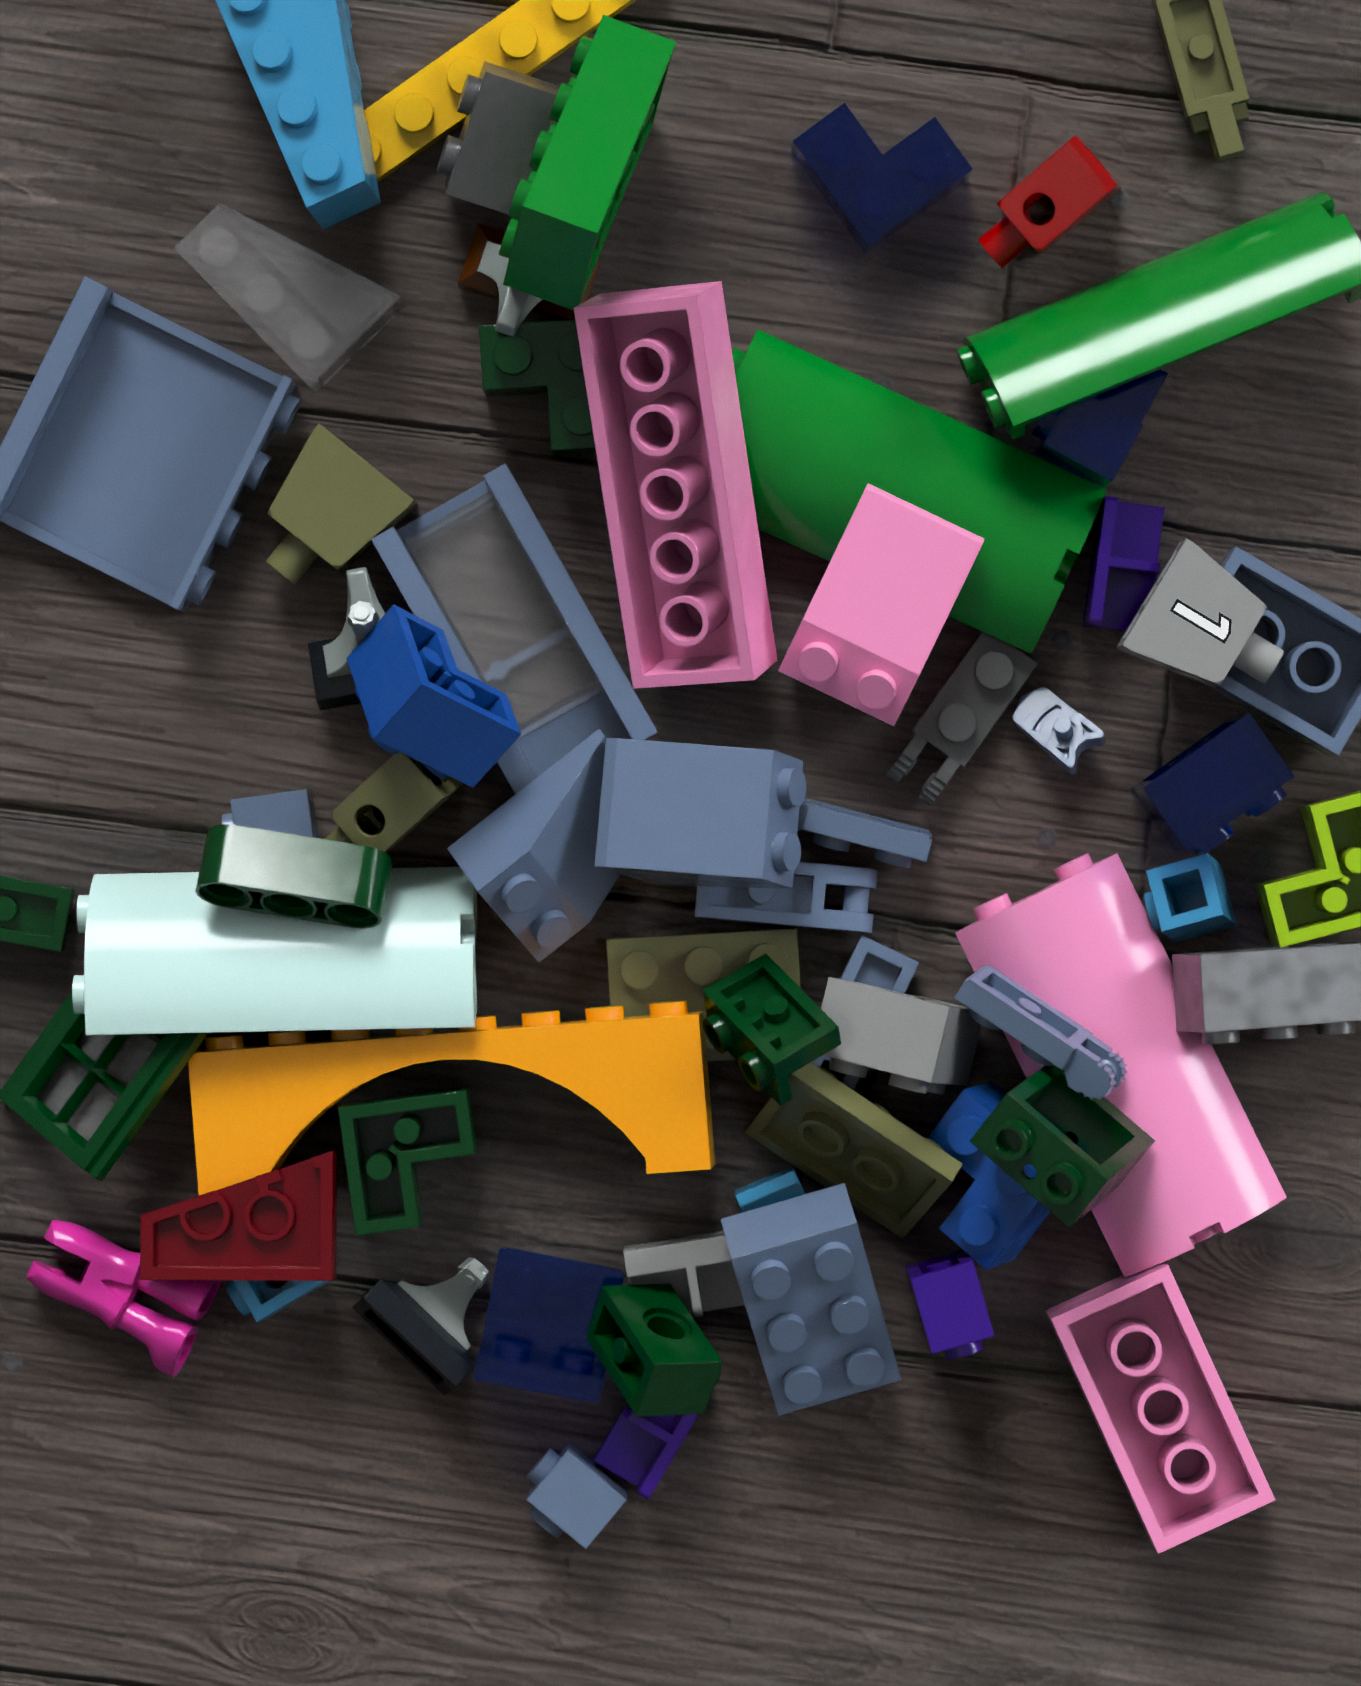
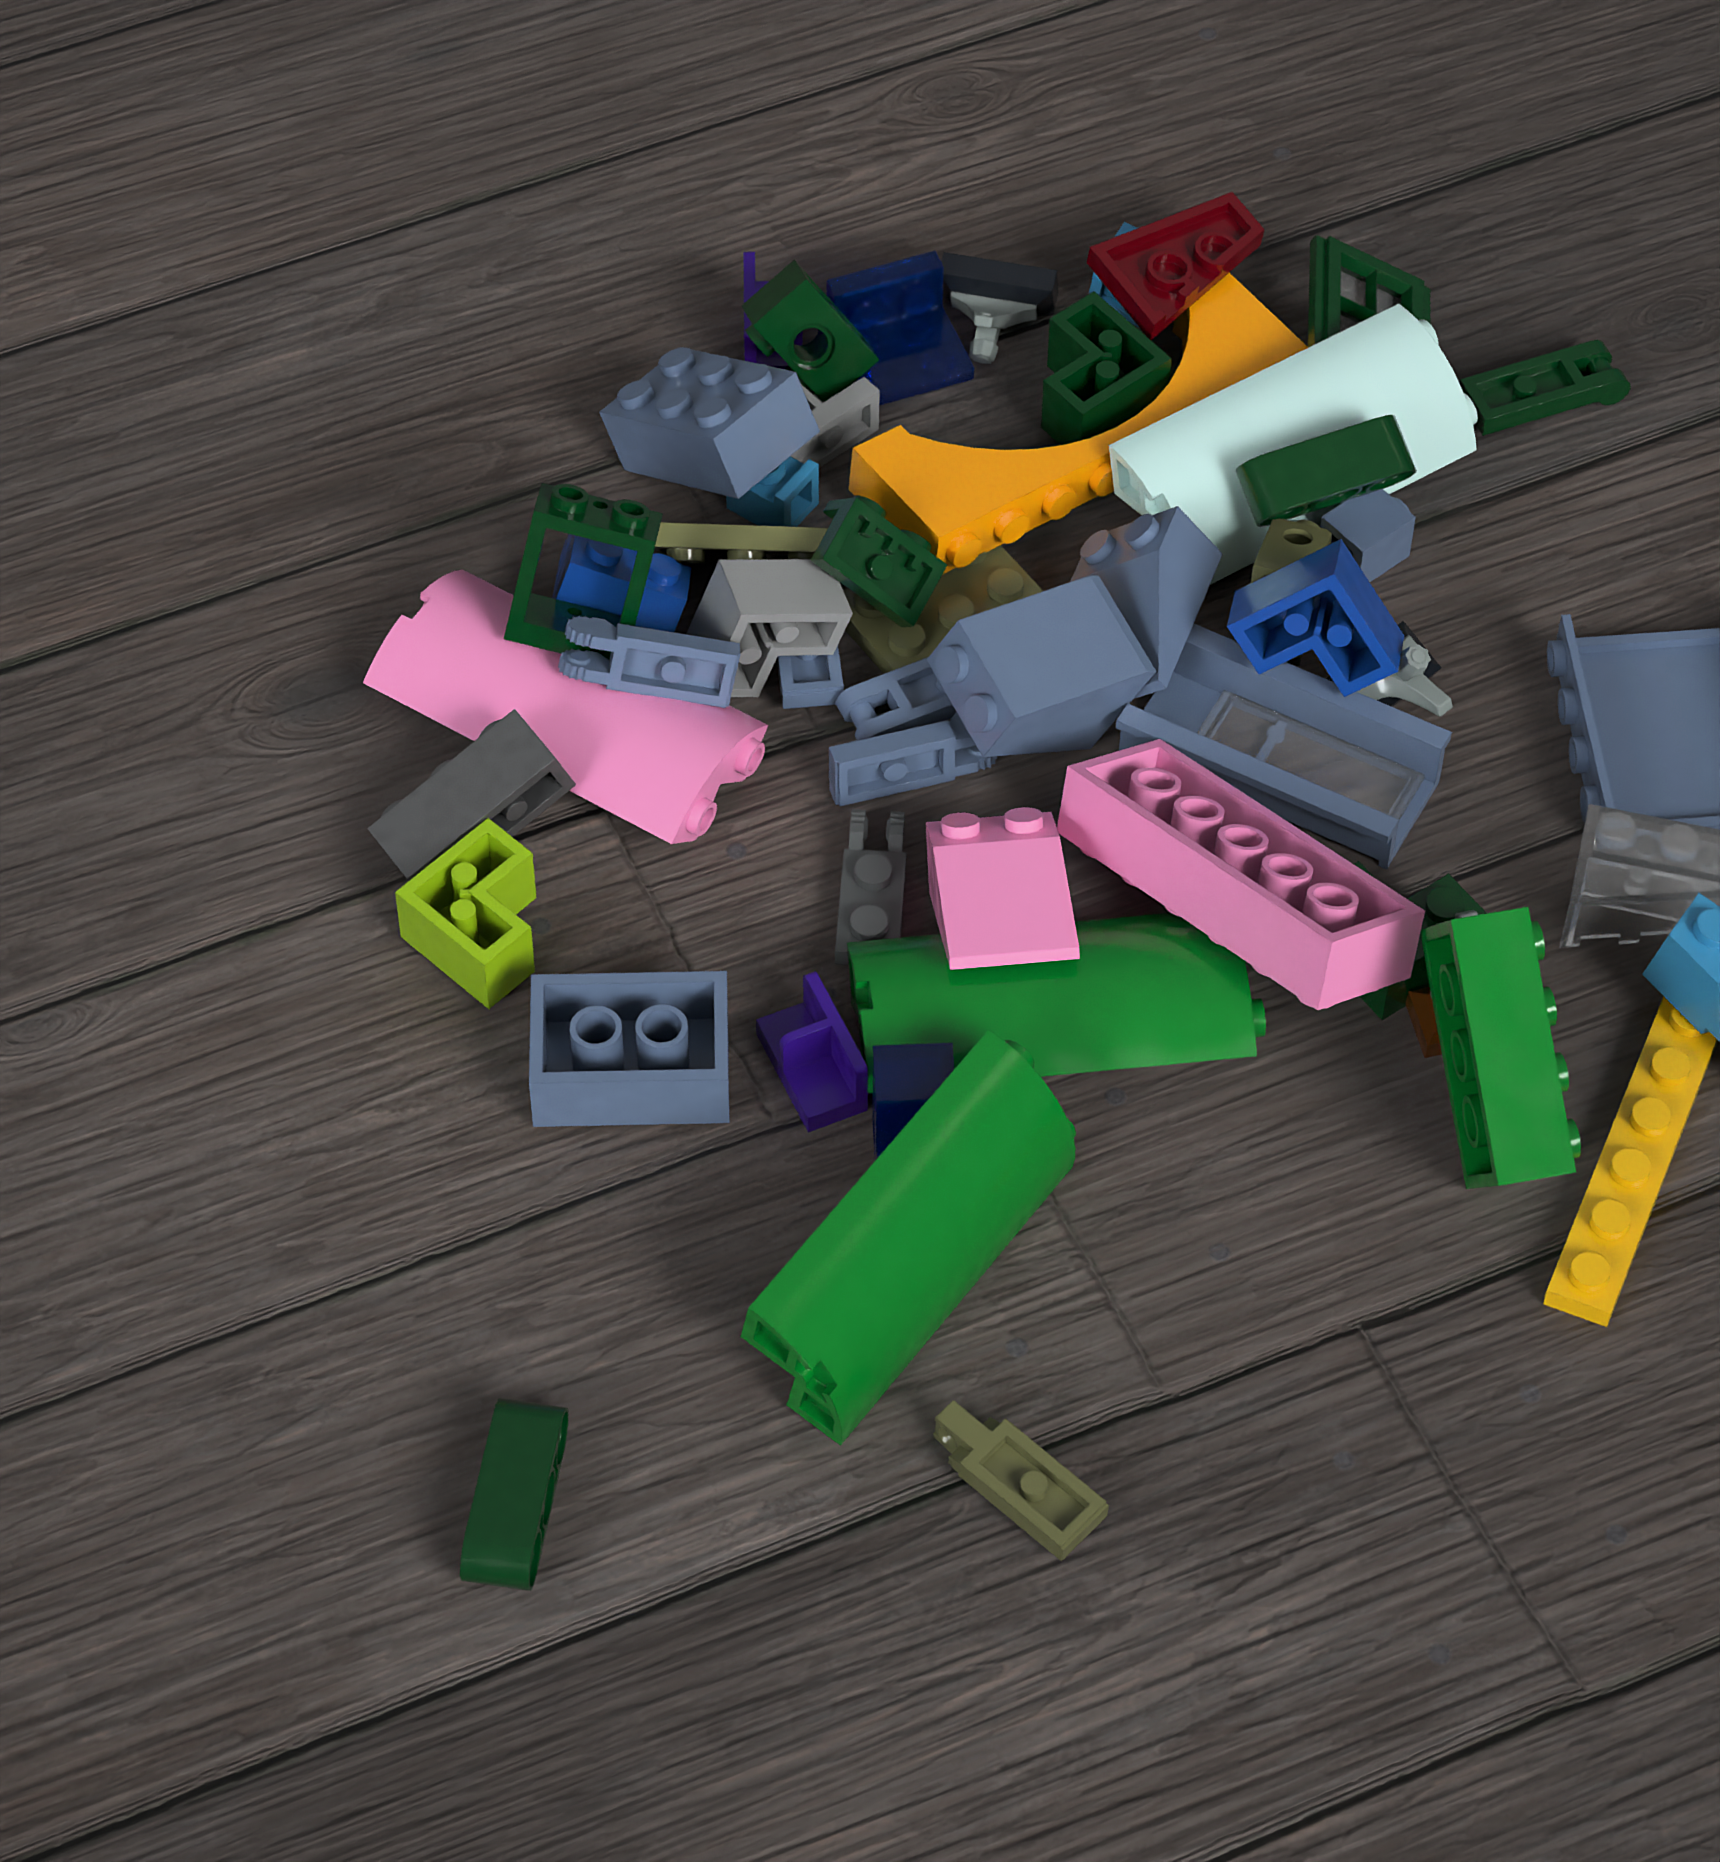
camera: 150 degrees right, 35 degrees down
(112, 1286) = (1282, 208): dark pink piece -> none
(332, 507) = (1500, 764): olive torso -> none
(497, 137) = (1602, 1081): flat silver brick -> none
(573, 1495) = (802, 237): sand blue brick -> none
(873, 190) = (1246, 1214): clear blue brick -> none
(950, 1304) = (597, 457): dark purple brick -> none
(1056, 727) = (785, 914): piece -> none
(1075, 185) = (1079, 1258): red torso -> none
(1160, 1406) = (375, 498): bright pink brick -> none
(1189, 898) = (585, 837): dark azure brick -> none
(1200, 622) = (721, 987): light grey torso -> none
(1213, 784) = (627, 904): clear blue brick -> none

